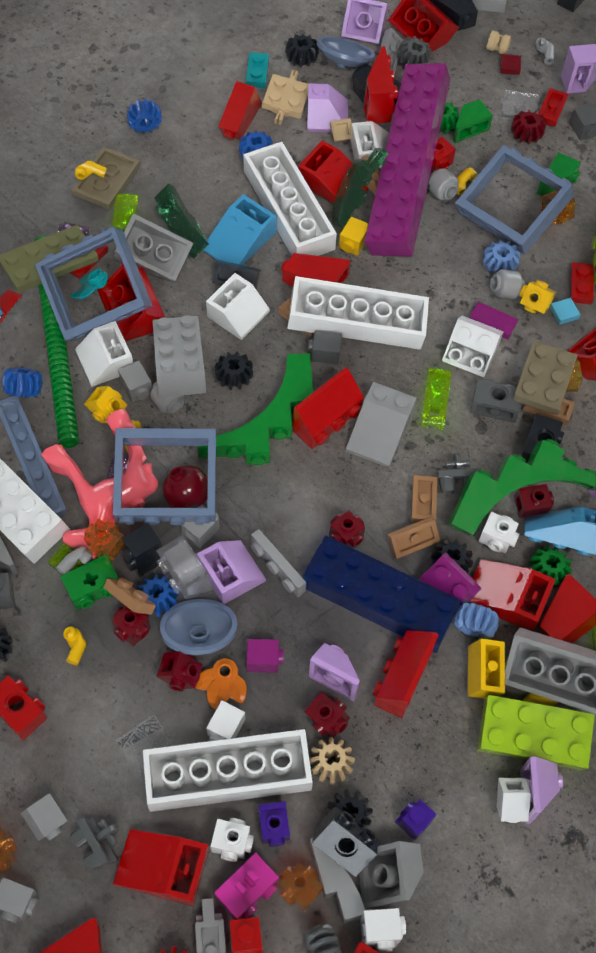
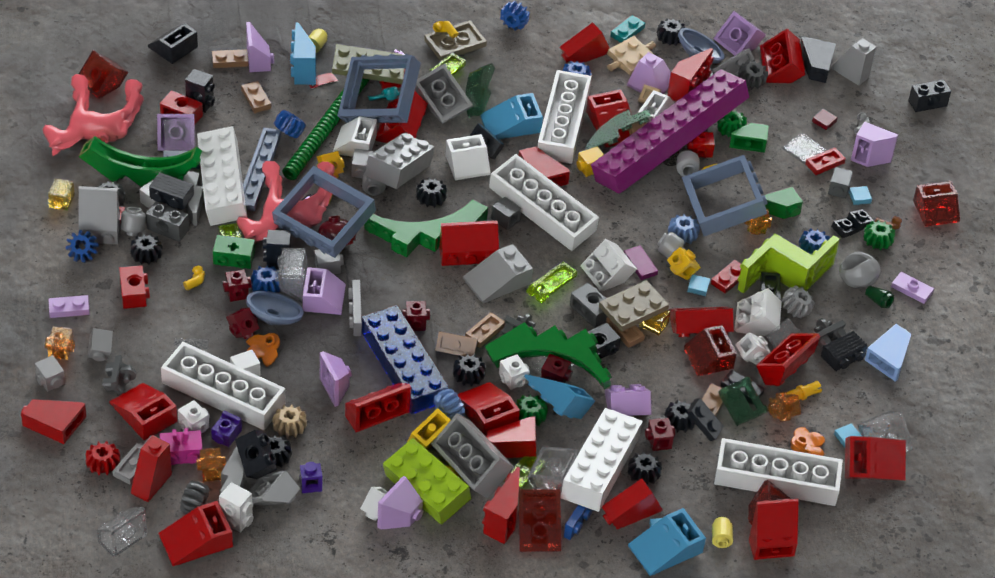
camera: 35 degrees right, 15 degrees down
(72, 558) = (238, 230): light grey arm -> none
(104, 539) = (257, 226): clear orange brick -> none
(132, 598) = (247, 265): medium nougat plate -> none
(264, 655) = (300, 347): magenta brick -> none
(328, 715) = (308, 396): dark red brick -> none
(451, 579) = (454, 373): magenta wing -> none
(494, 42) = (826, 98): tan wheel -> none
(528, 126) = (792, 163): dark red gear -> none

